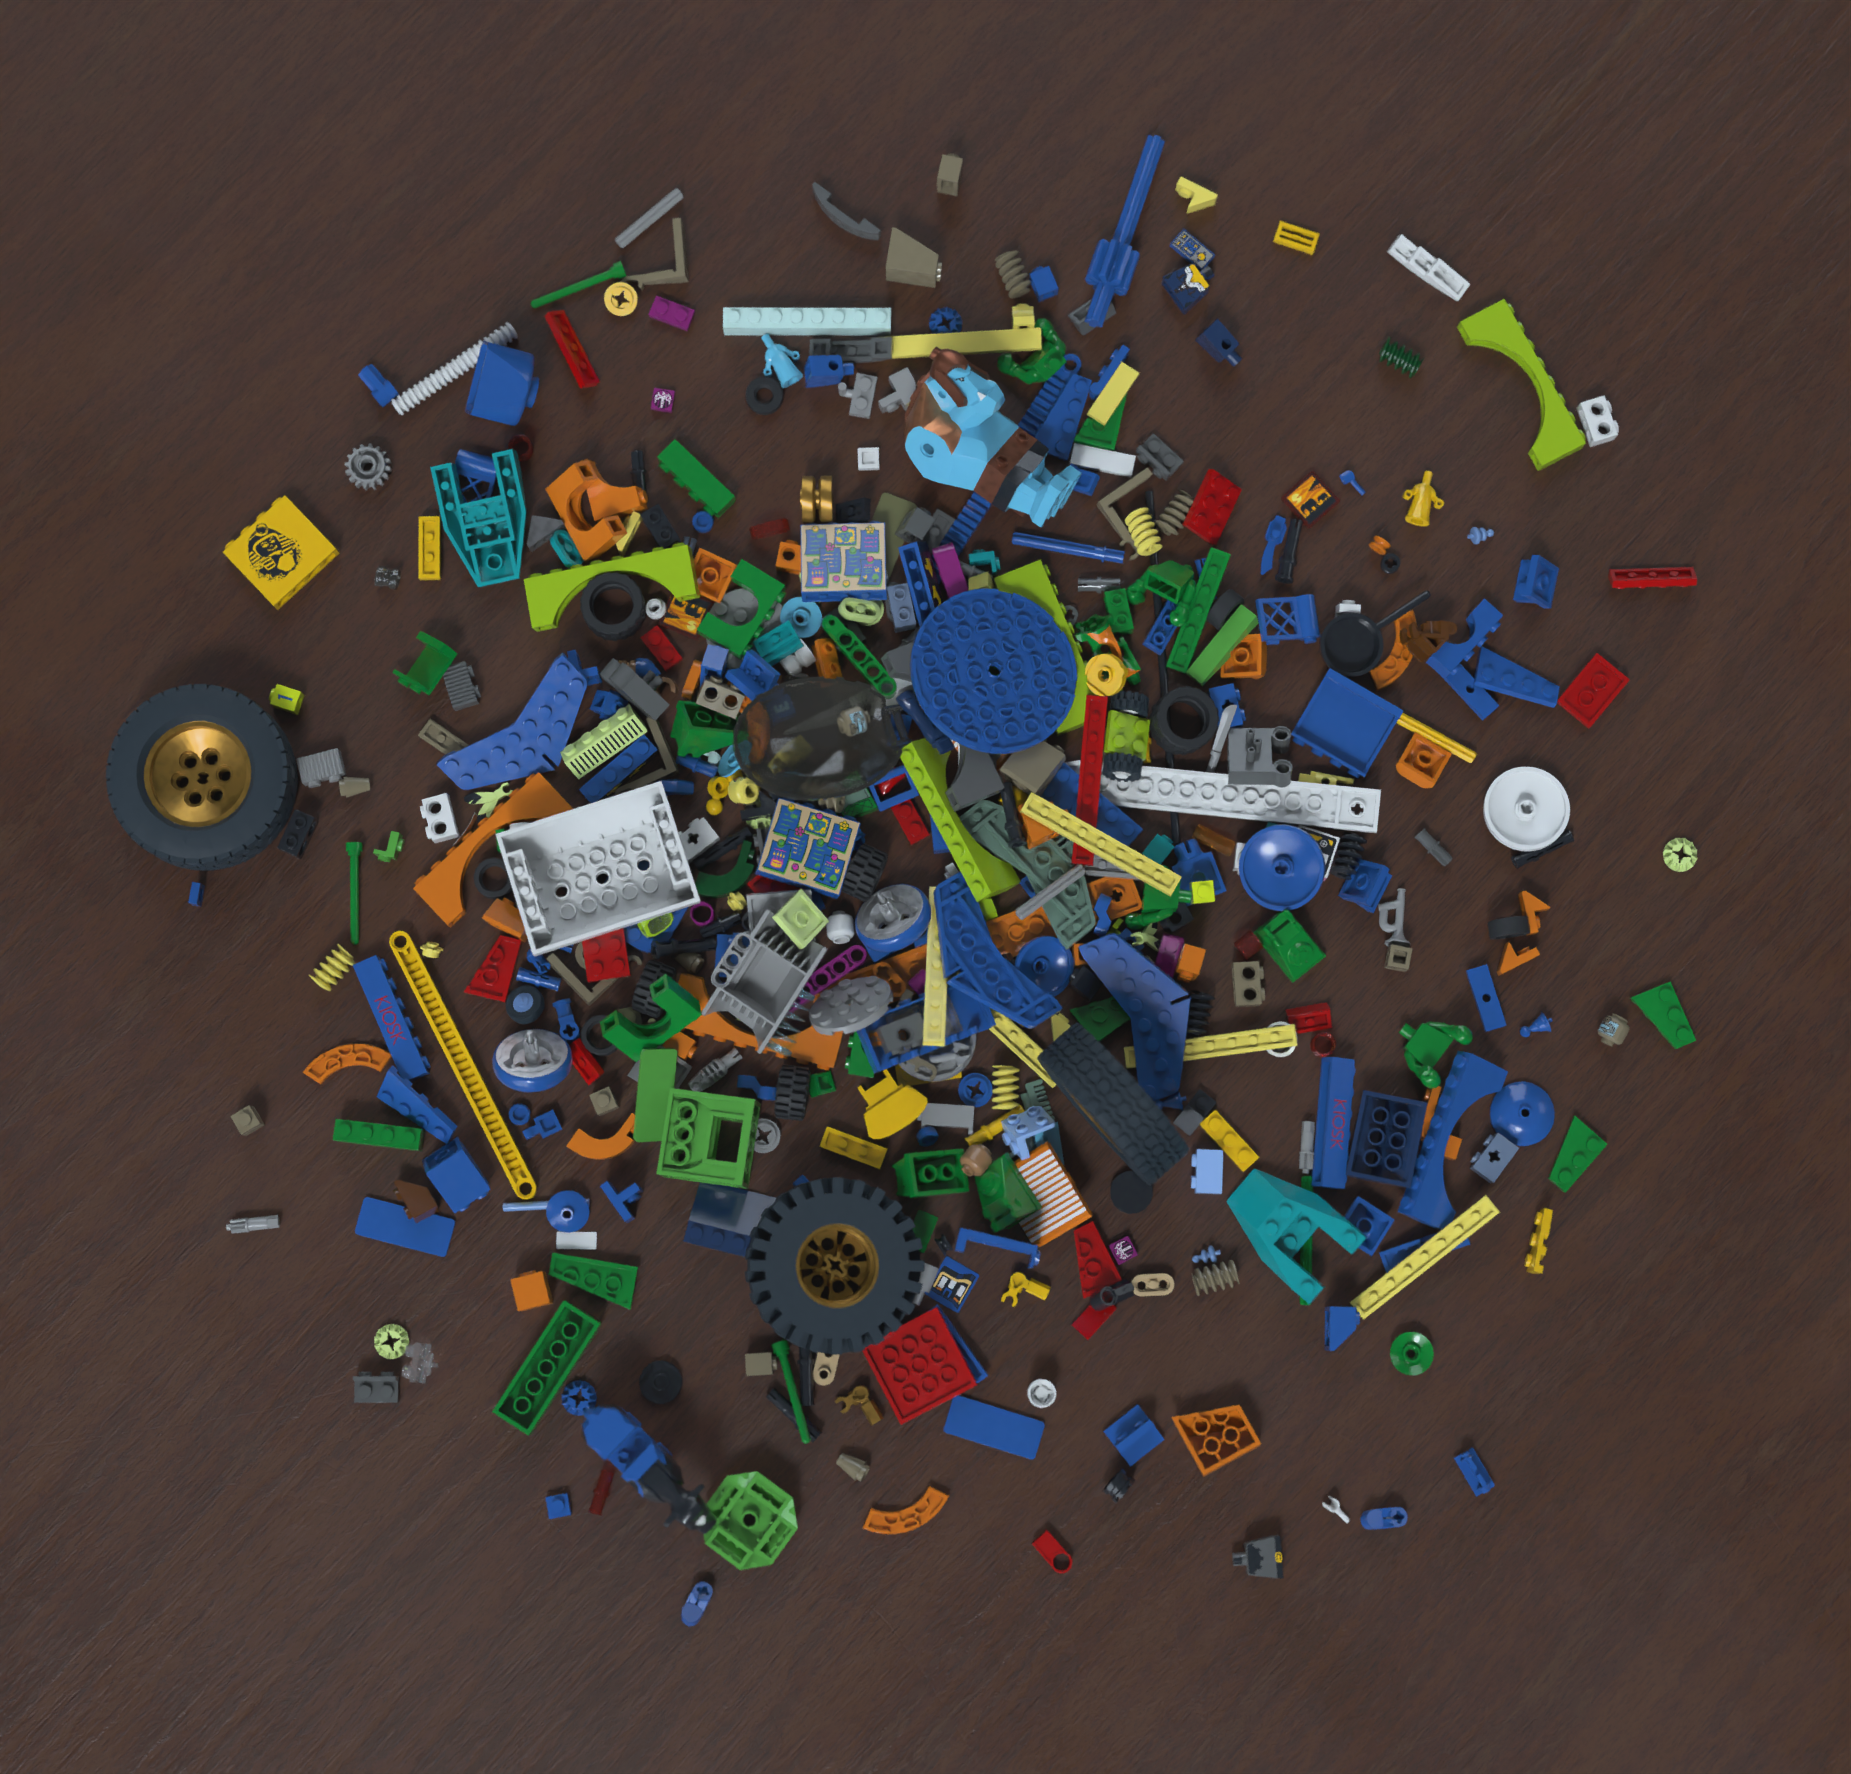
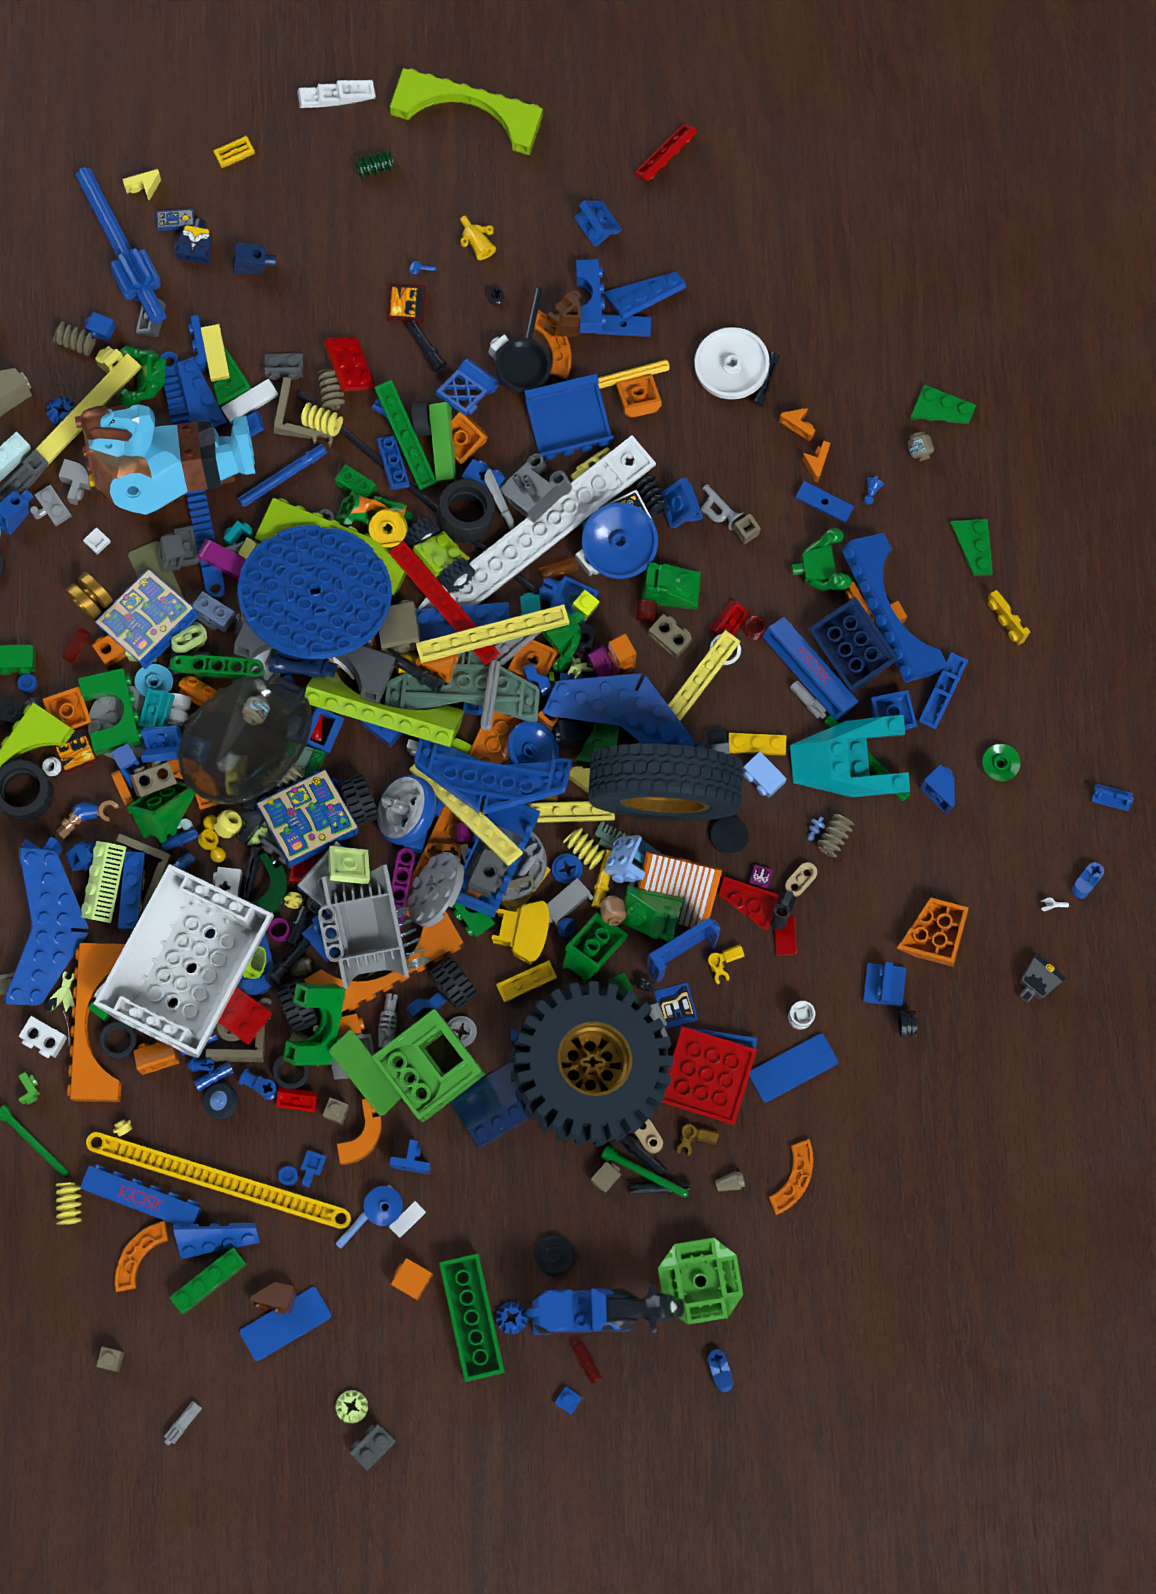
camera: 50 degrees left, 5 degrees down
(421, 1363) = (387, 1400): clear hips -> none
(456, 1175) = (286, 1255): blue slope -> none
(497, 970) = (180, 1098): red wing -> none
(531, 1049) = (255, 1124): flat silver wheel -> none
(602, 1278) = (448, 1226): green wing -> none
(636, 691) = (91, 826): dark grey piece -> none
(661, 648) = (81, 788): red plate -> none
(728, 764) = (200, 812): medium azure dish -> none
(821, 1084) = (466, 961): green slope -> none
(840, 927) = (378, 851): white head -> none
(854, 510) = (120, 581): black slope -> none
(910, 822) = (354, 742): red plate -> none
(921, 578) = (209, 581): blue brick -> none
(1049, 1548) = (905, 1108): red piece -> none
(1099, 584) = (325, 480): dark grey pin -> none
(1169, 581) = (369, 434): green torso -> none
(1198, 1012) = (659, 682): black piece -> none
(1274, 536) = (406, 347): blue piece -> none
(1379, 545) = (478, 289): orange bush -> none
(1425, 1257) = (949, 693): light yellow tile -> none
(1434, 847) = (699, 442): dark grey axle -> none
(1477, 535) = (533, 226): medium blue hair -> none
(1504, 1152) = (931, 584): sand blue brick -> none
(1507, 1116) = (917, 563): blue dish -> none
(1508, 927) = (794, 445): black tyre -> none
(1591, 421) = (533, 93): white brick -> none
(1592, 690) = (698, 254): red plate -> none
(1671, 858) = (850, 310): yellowish green gear -> none

